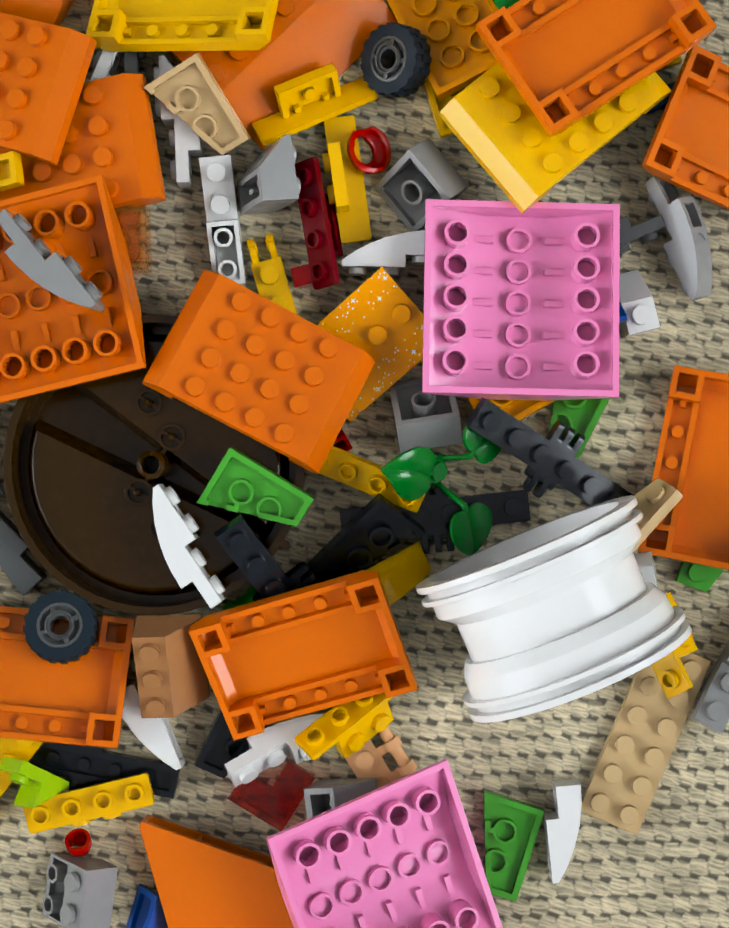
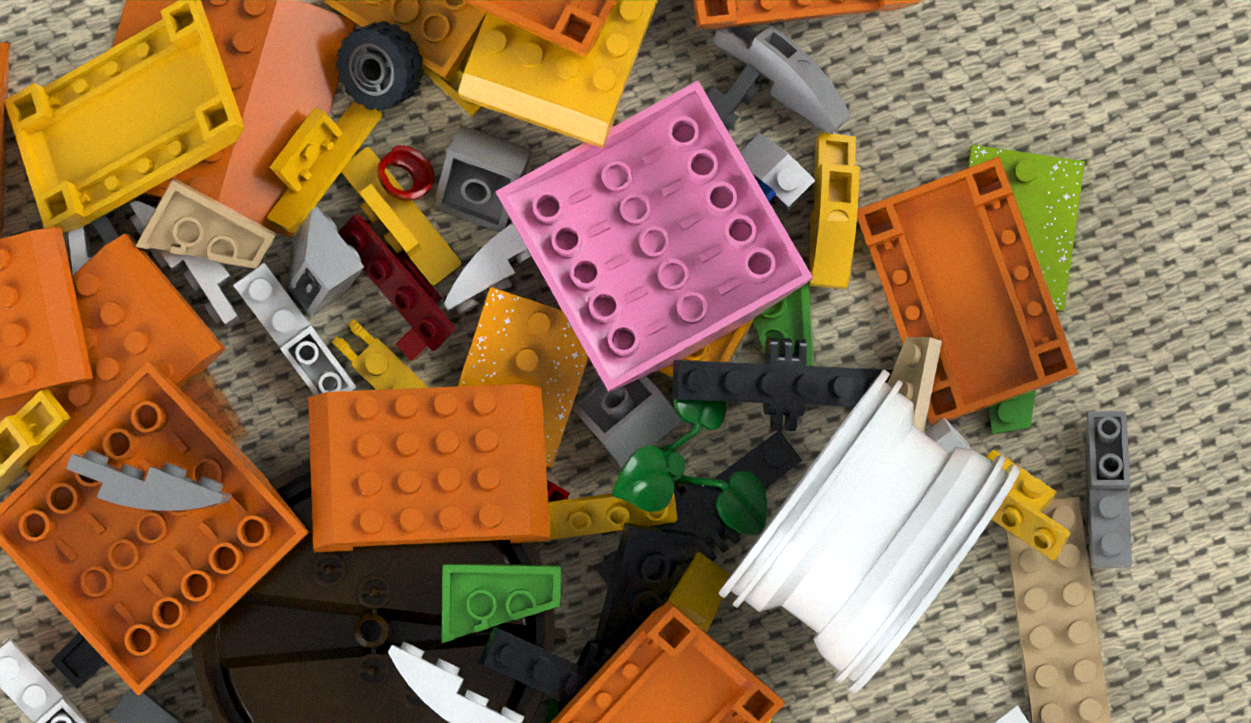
camera: 30 degrees left, 5 degrees down
(660, 357) = (834, 210): none -> yellow slope

